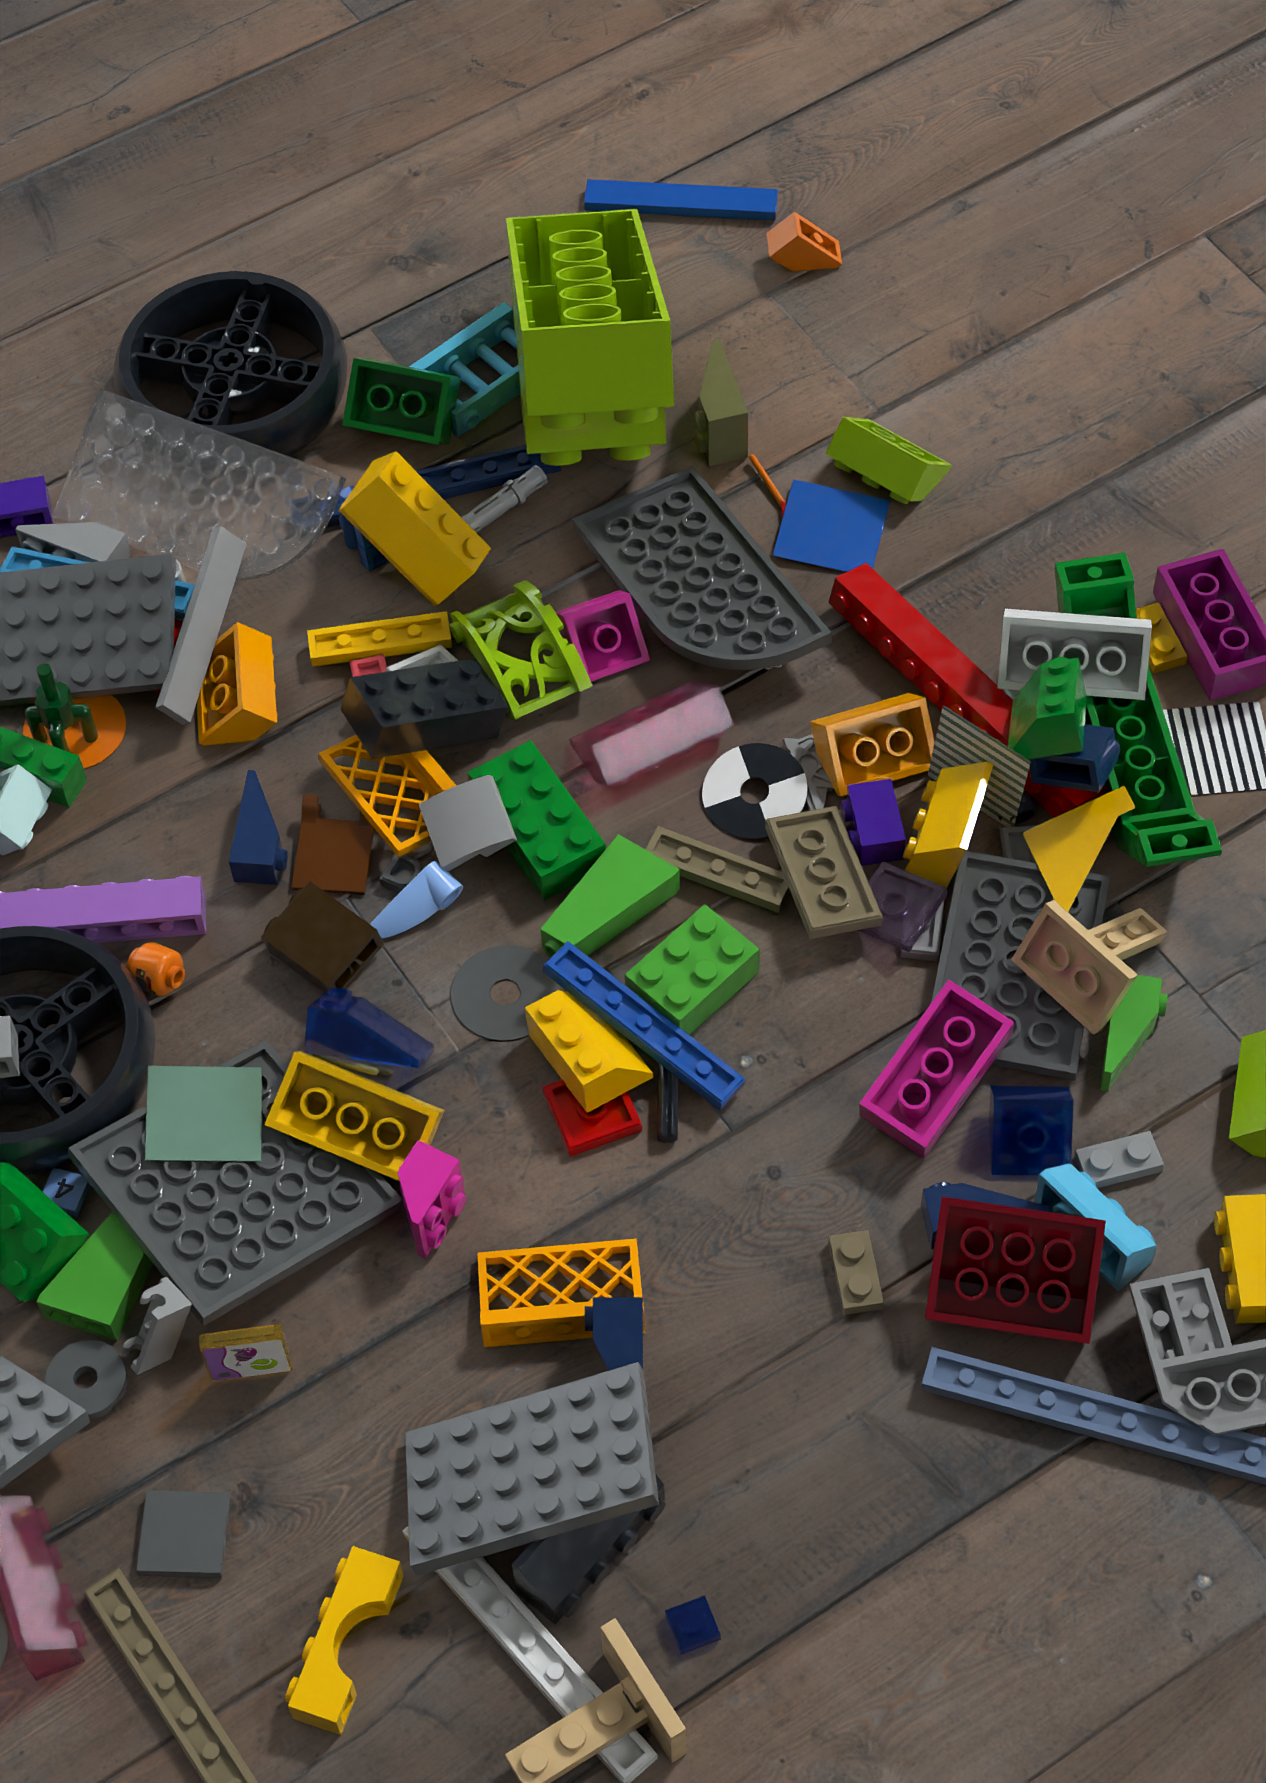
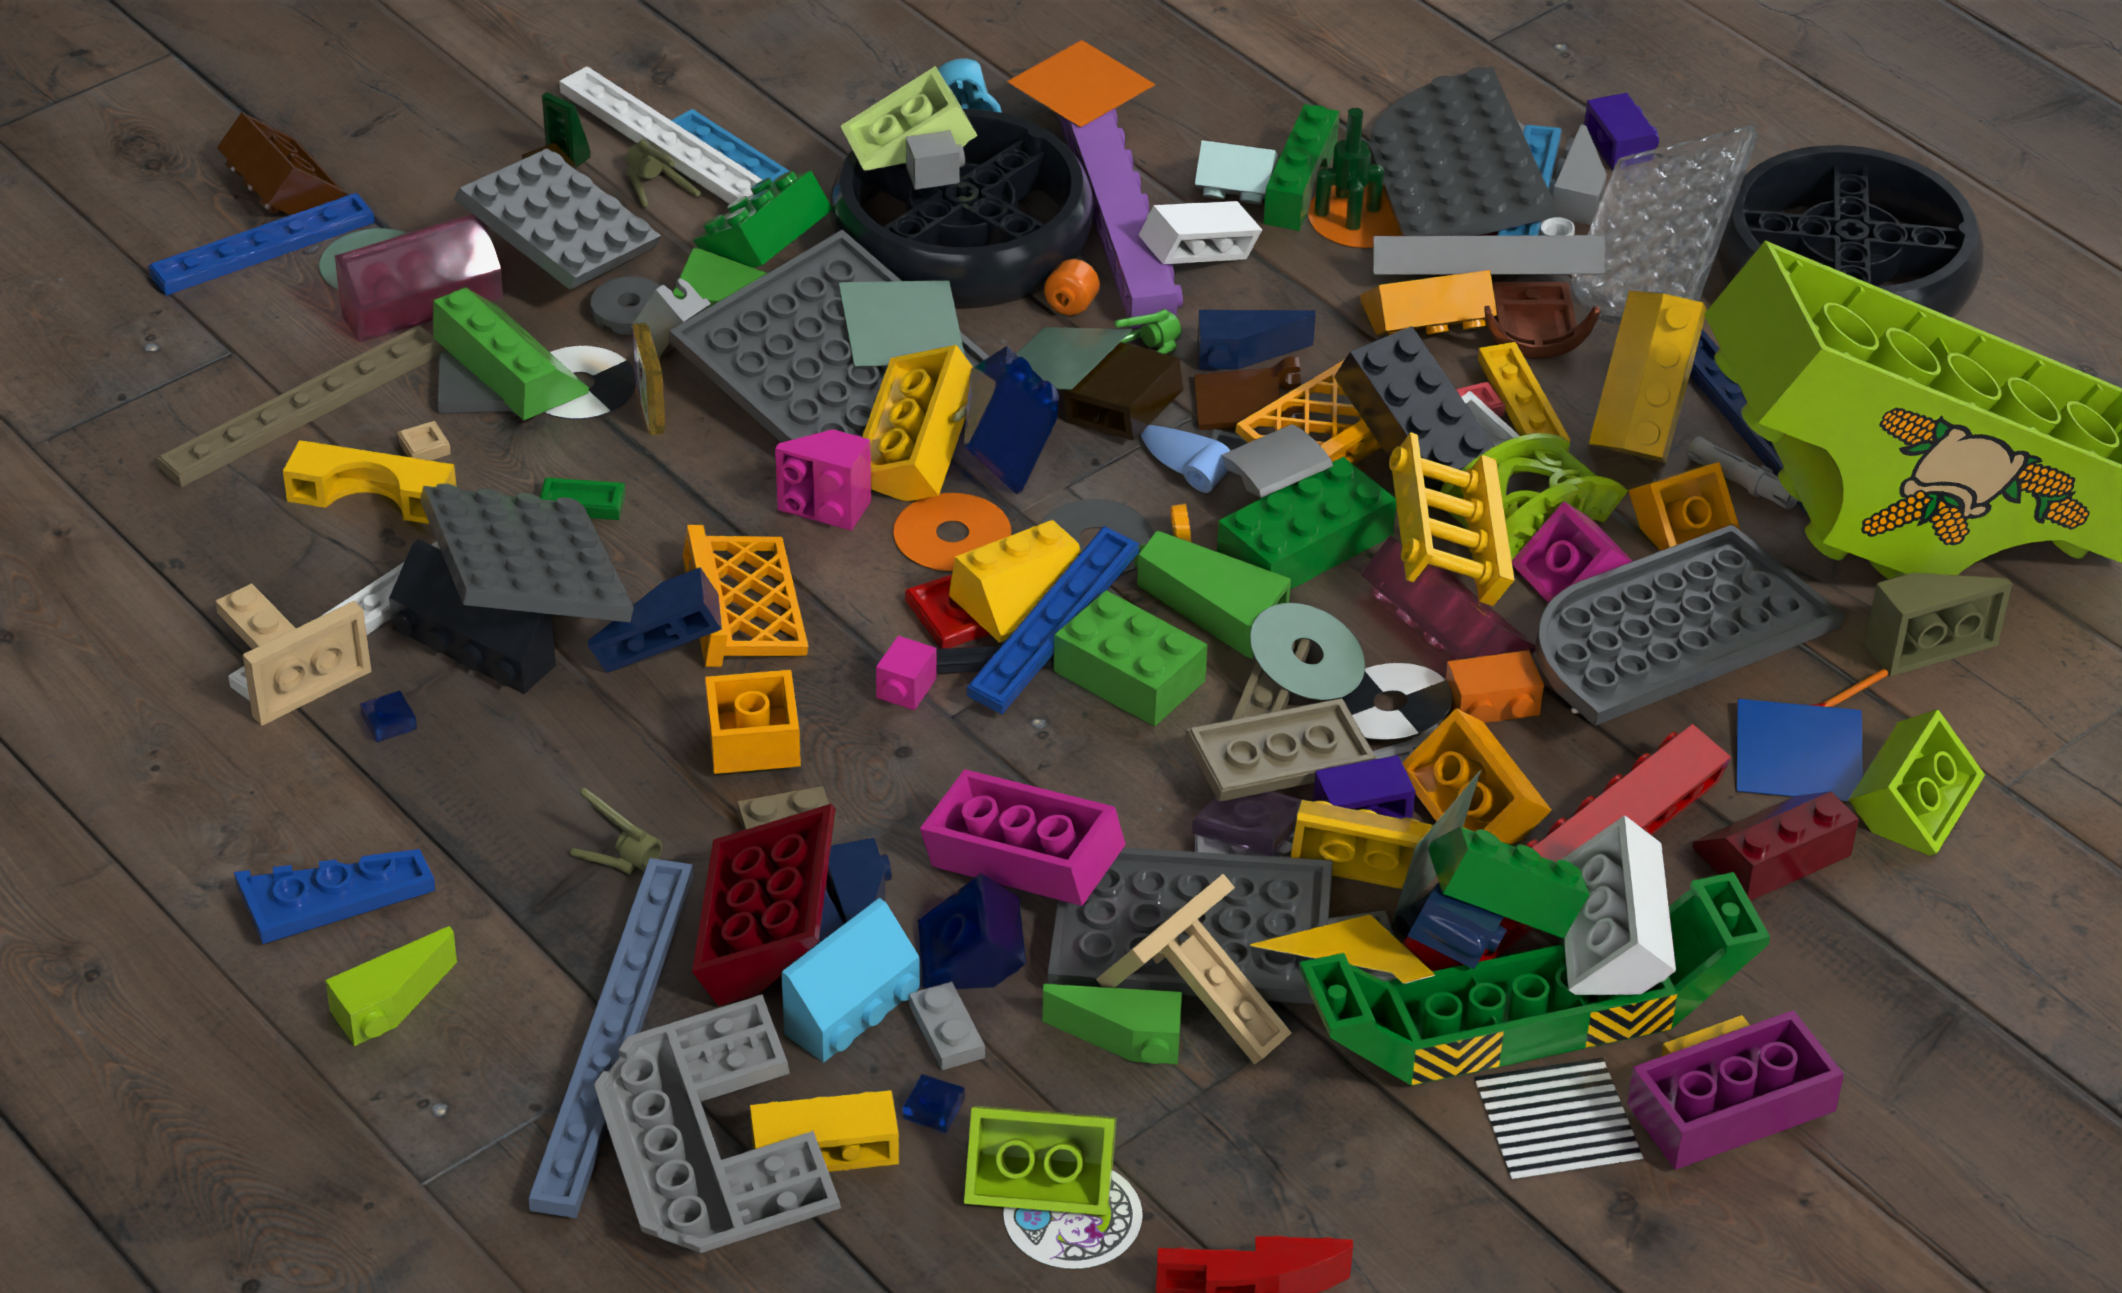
camera: 80 degrees right, 15 degrees down
(113, 847) = (1200, 232): none -> white brick
(165, 1498) = (503, 354): none -> bright green slope
(202, 1470) = (612, 386): none -> white sticker
(234, 907) = (1158, 331): none -> bright green plant
(262, 989) = (1069, 353): none -> sand green sticker
(275, 607) = (1538, 318): none -> copper piece
(275, 1590) = (424, 442): none -> tan tile
(386, 1437) = (599, 498): none -> green tile
(513, 917) = (1180, 522): none -> light orange tile
(513, 1109) = (918, 524): none -> orange sticker
(548, 547) = (1684, 506): none -> light orange slope
(581, 680) = (1480, 507): none -> yellow fence
(667, 838) = (1342, 656): none -> sand green sticker
(690, 1155) = (906, 672): none -> dark pink brick
(754, 709) = (1496, 686): none -> orange brick
(756, 1283) = (753, 721): none -> light orange brick
(896, 1398) = (633, 843): none -> olive plant
(941, 555) = (1782, 842): none -> dark red slope
(944, 1688) = (315, 897): none -> blue wing
(1077, 1619) = (389, 987): none -> lime slope
(1206, 1177) = (934, 1103): none -> clear blue plate

